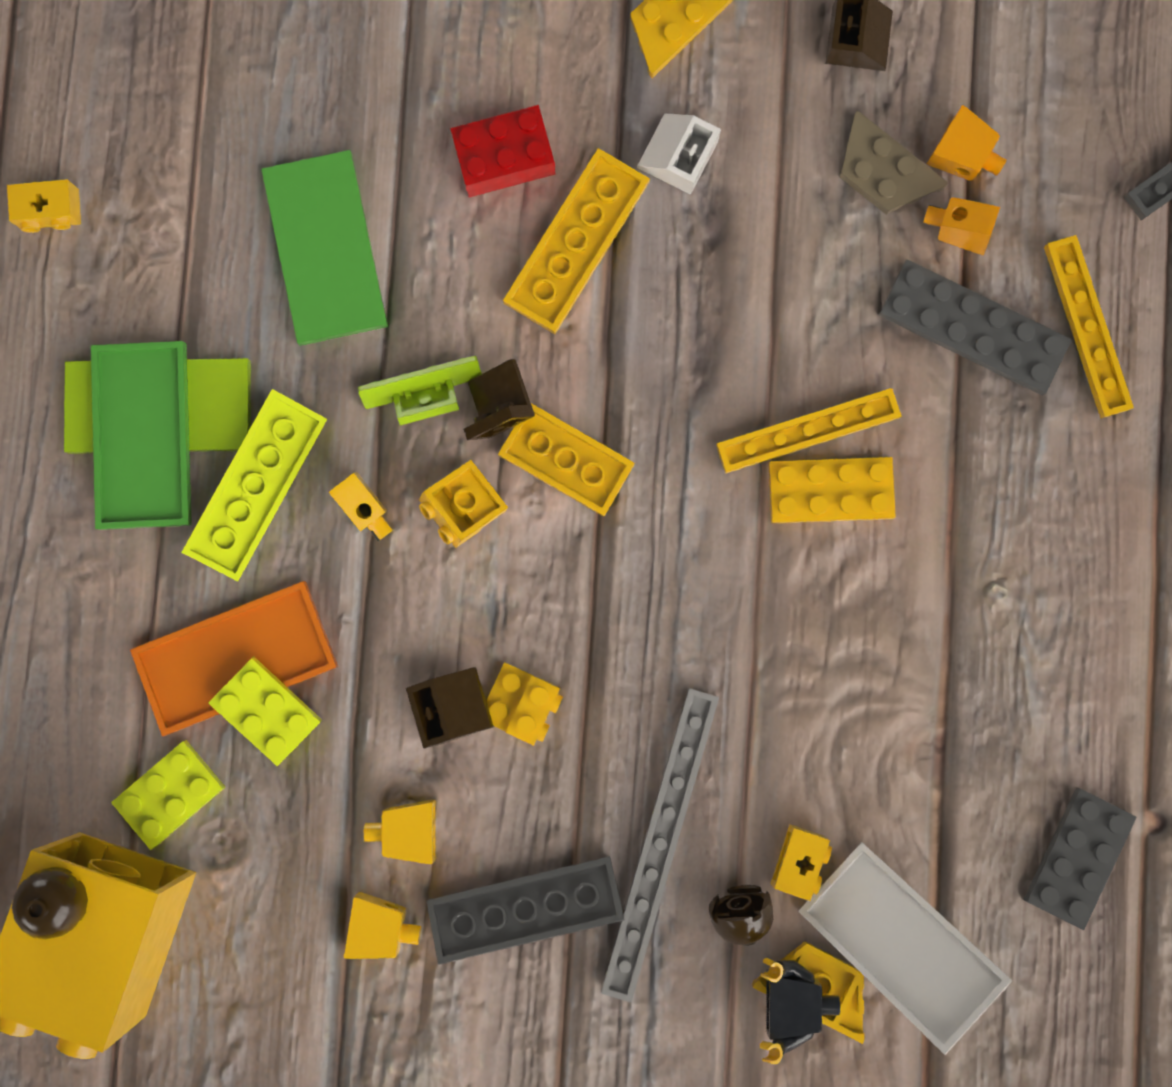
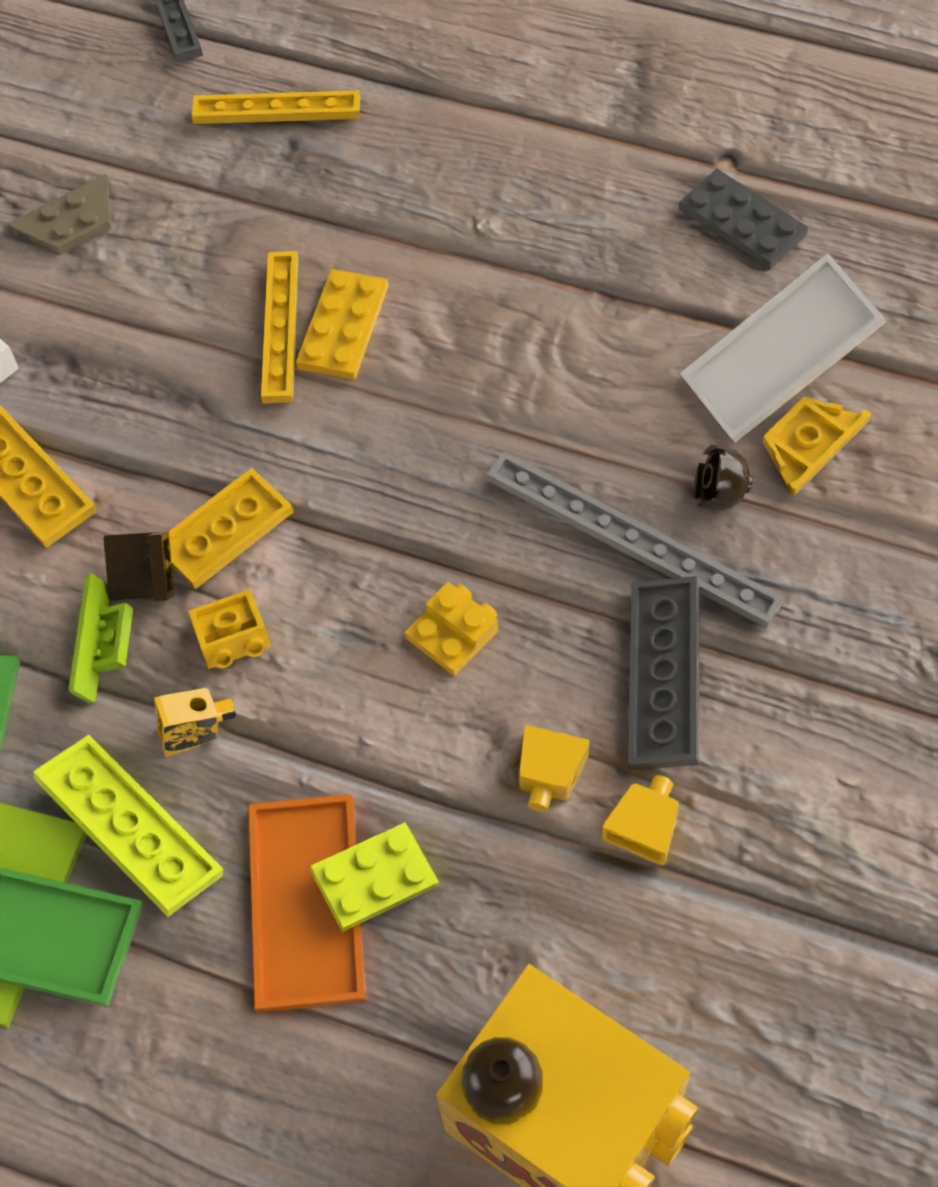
camera: 70 degrees left, 25 degrees down
(168, 795) = (431, 1011): neon yellow plate -> none
(449, 707) = (432, 685): dark brown slope -> none
(793, 1007) = (817, 451): torso -> none
(796, 846) = (684, 424): yellow brick -> none
(964, 223) = (147, 164): light orange torso -> none
(967, 147) = (80, 152): light orange torso -> none
(975, 327) = (240, 187): dark grey plate -> none

